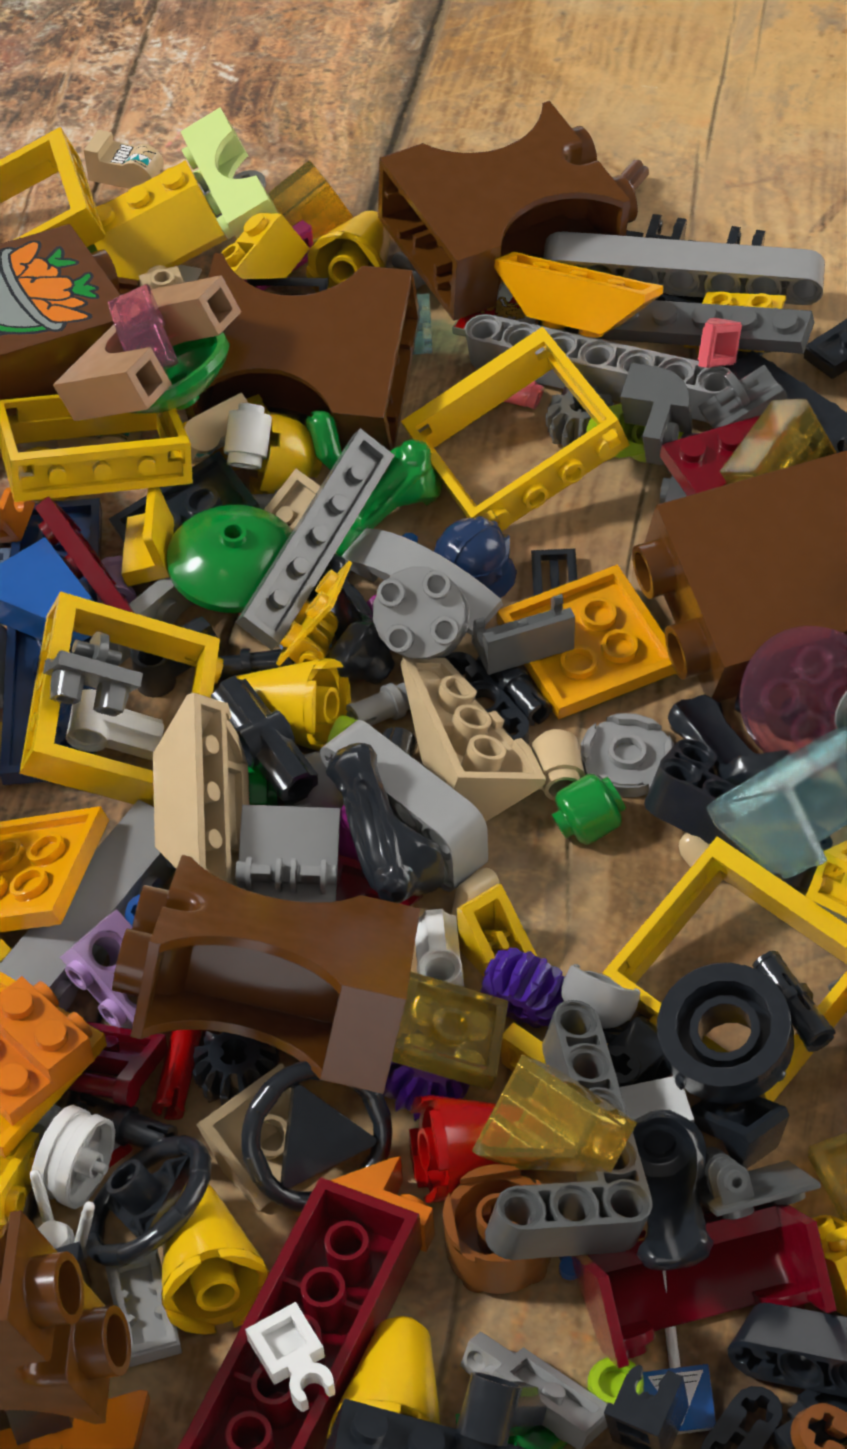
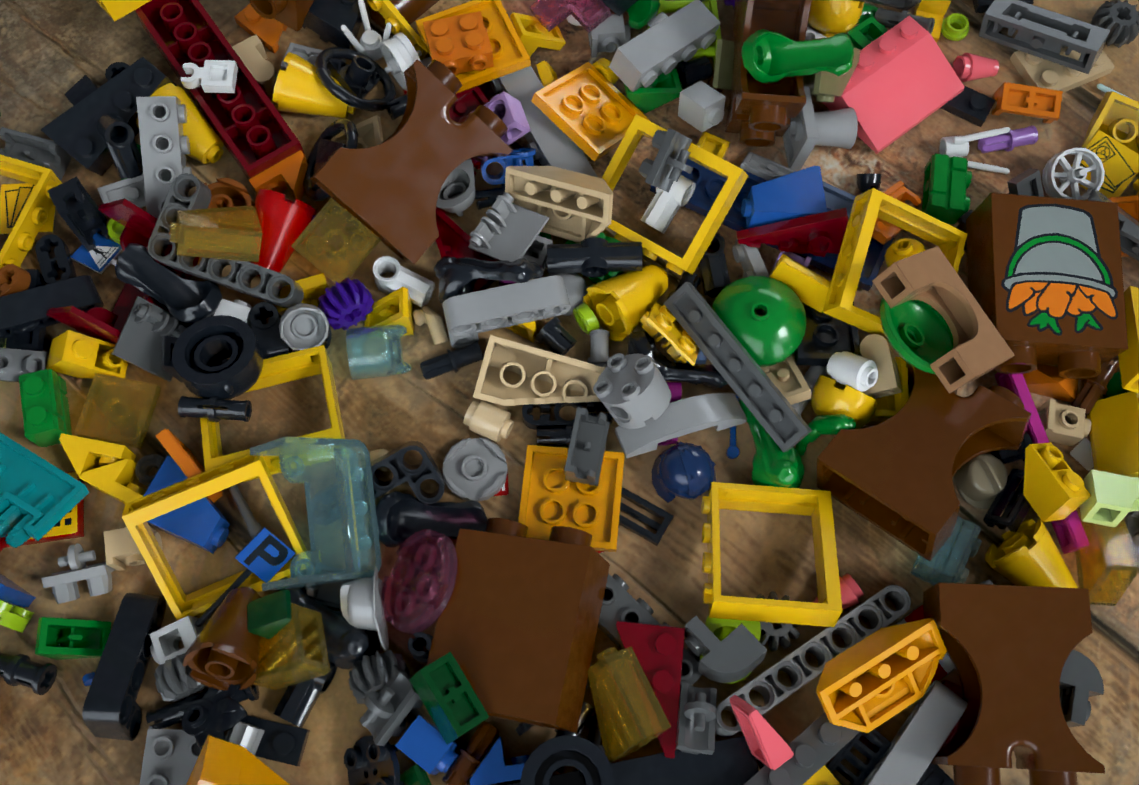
camera: 115 degrees right, 20 degrees up
(141, 324) = (961, 311): clear pink slope -> none
(177, 1406) = (253, 56): none -> tan leg
(487, 1332) = (161, 146): none -> light grey brick
(507, 850) = (451, 361): none -> black axle
(564, 912) = (376, 351): none -> clear light blue piece
(588, 809) = (444, 416): green head -> none

